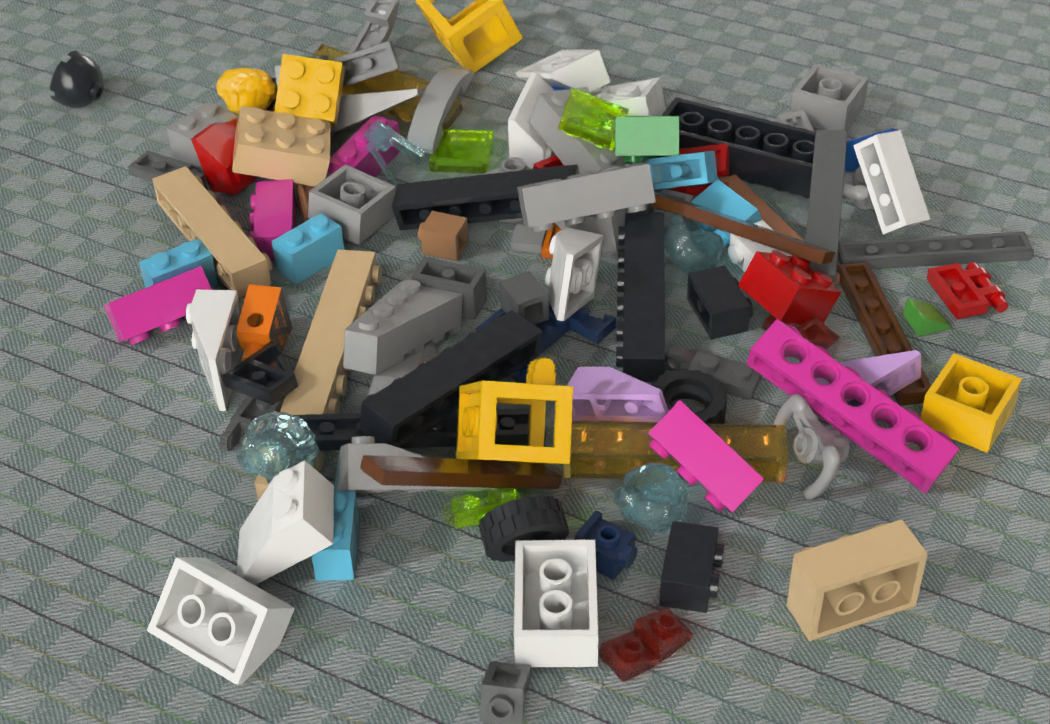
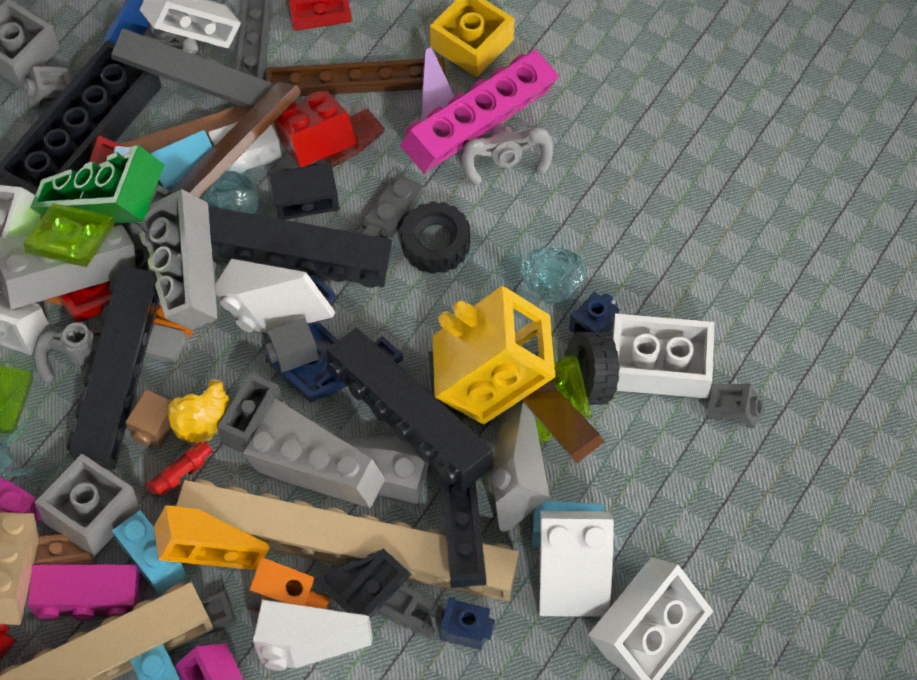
camera: 85 degrees left, 20 degrees up
(223, 470) = (471, 636): none -> dark blue brick
(277, 443) = (499, 553): clear light blue hair -> none
(310, 255) = (202, 539): none -> light orange slope
(387, 249) = (187, 463): none -> red plate
(440, 244) = (197, 417): none -> yellow hair
(614, 397) = (427, 290): lavender slope -> none
(616, 448) = (495, 232): clear yellow brick -> none
(649, 644) = (689, 299): clear red slope -> none
(689, 567) = (622, 260): black brick -> none
(704, 458) = (528, 225): dark pink brick -> none
(855, 579) = (658, 147): tan brick -> none
(924, 317) = (347, 44): bright green slope -> none

